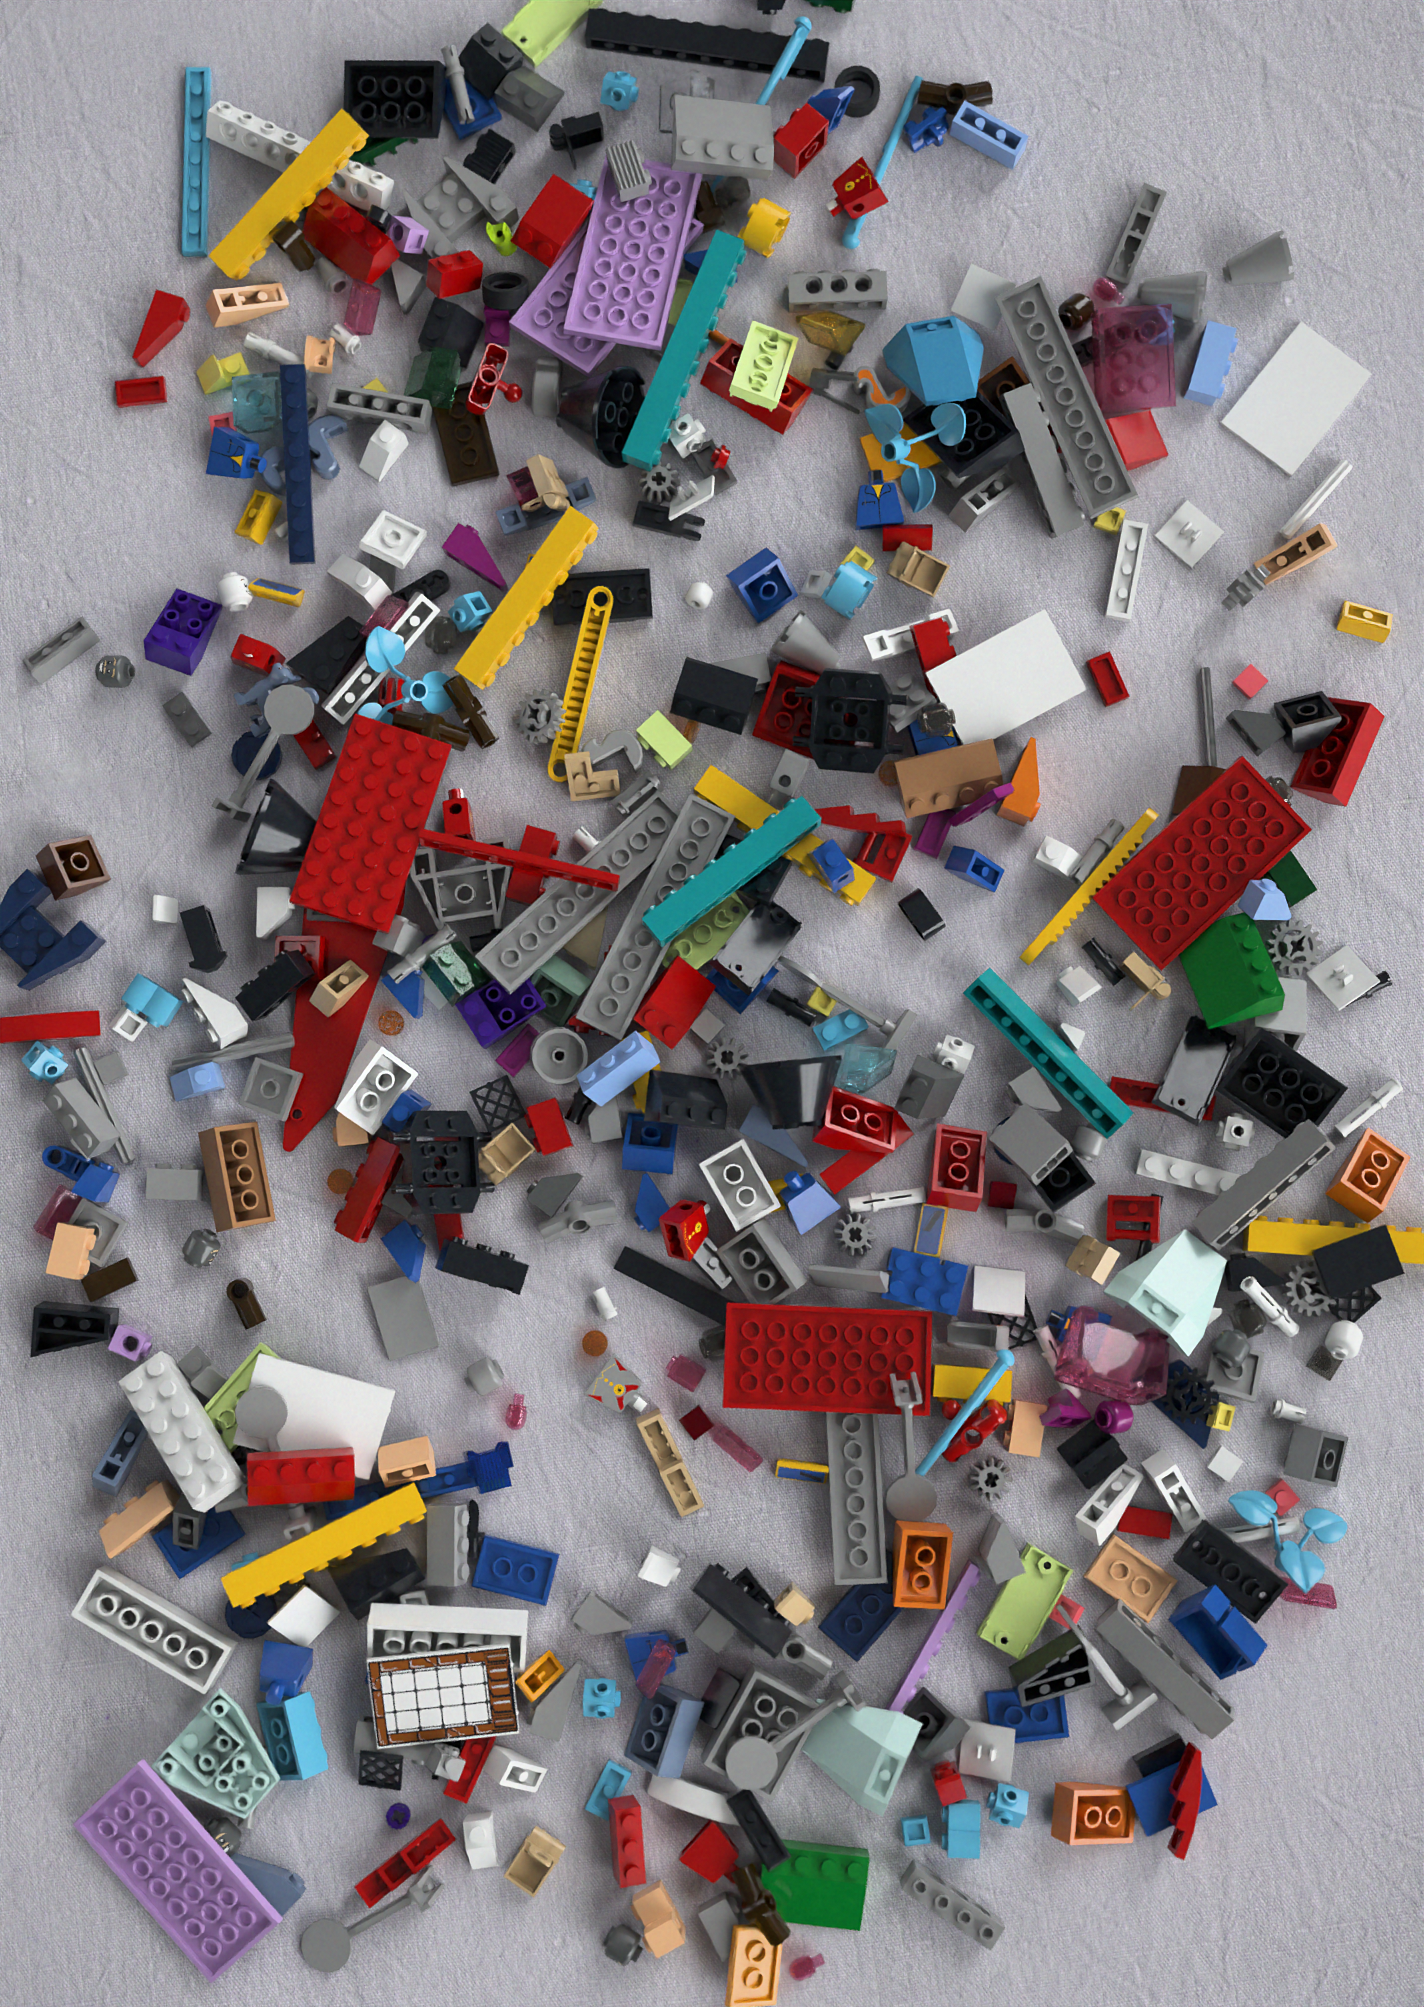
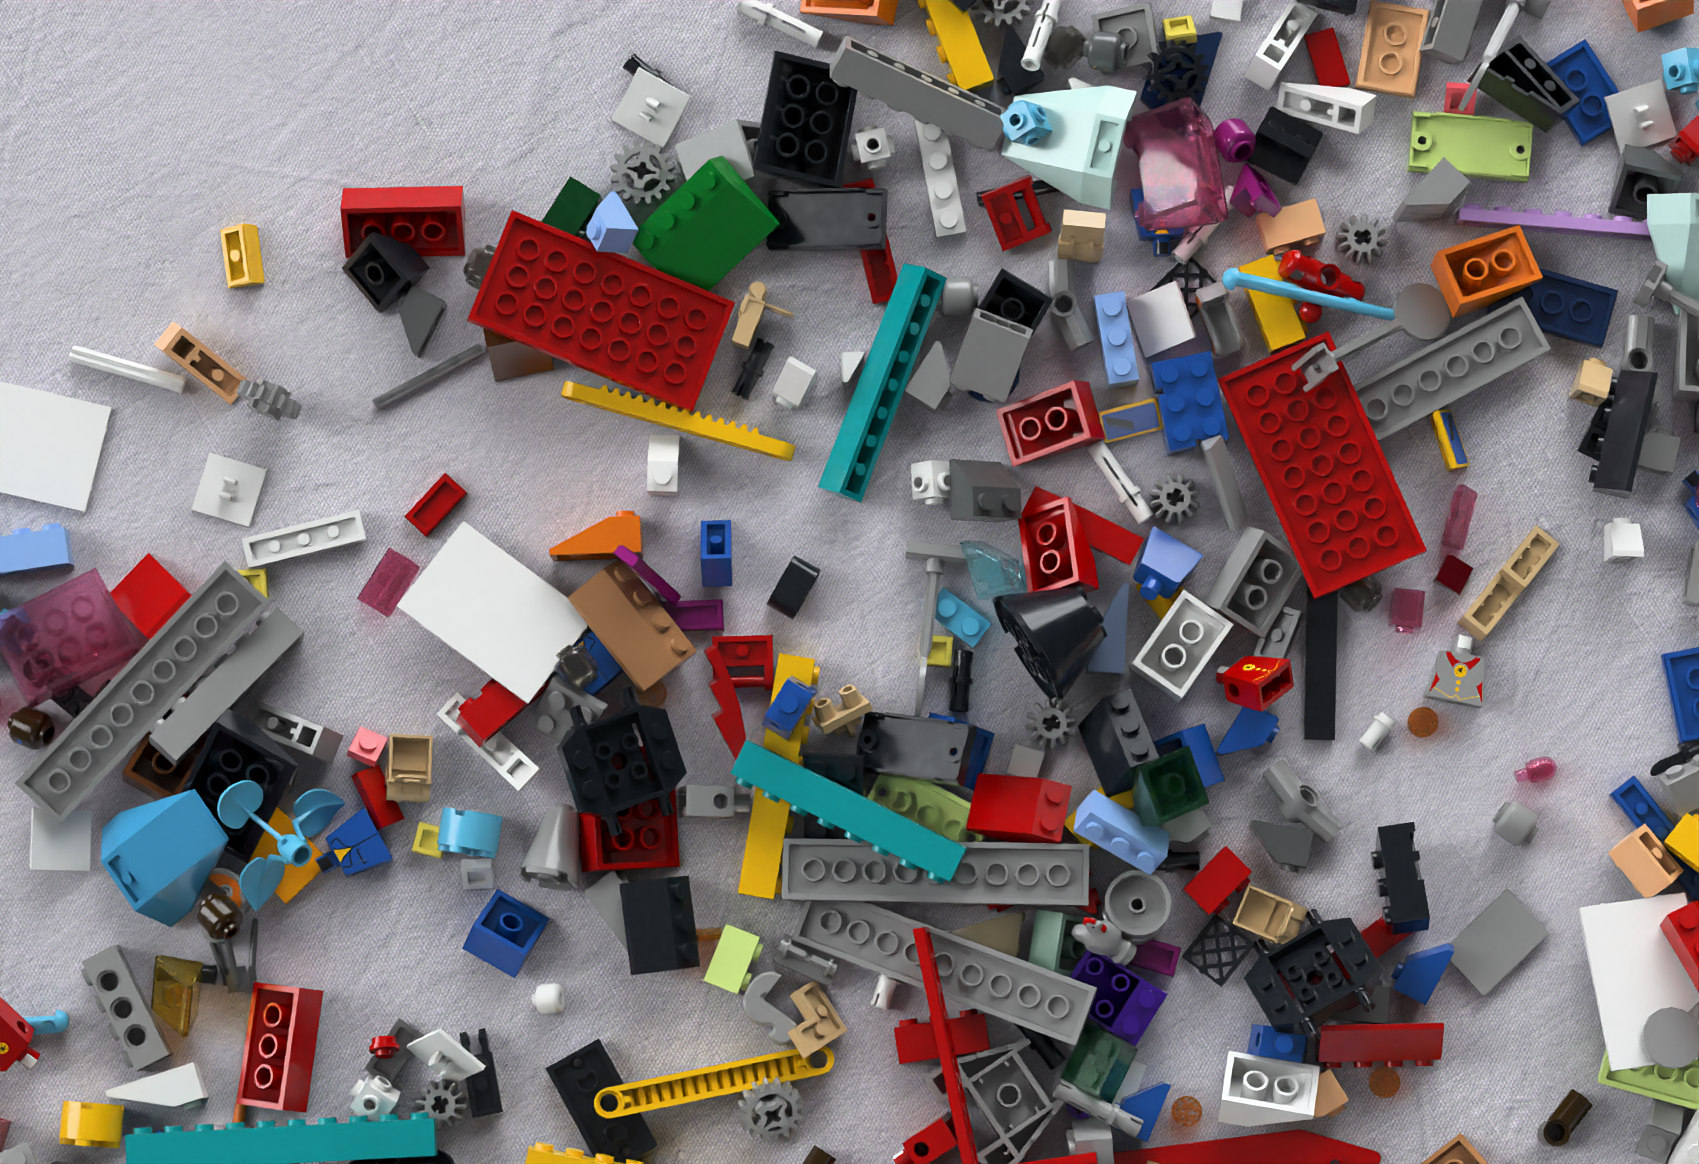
camera: 120 degrees left, 0 degrees up
(490, 1467) = (1607, 769): clear blue piece -> none
(543, 1018) = (1104, 939): none -> light grey animal
(633, 1118) = (1168, 788): none -> clear green slope
(763, 365) = (258, 1046): yellowish green piece -> none
(764, 293) = (169, 1088): none -> white slope
(806, 905) = (842, 716): none -> tan hips
(871, 378) = (220, 916): none -> dark brown head
(948, 546) = (367, 747): none -> coral plate
(999, 1248) = (1115, 340): none -> light blue brick
(1002, 1194) = (1056, 363): dark red slope -> none
(1065, 618) = (388, 582): none -> clear pink slope
(1102, 844) = (625, 427): light grey pin -> none
(1202, 1256) = (1025, 122): none -> medium azure brick
(1250, 681) = (367, 349): coral tile -> none

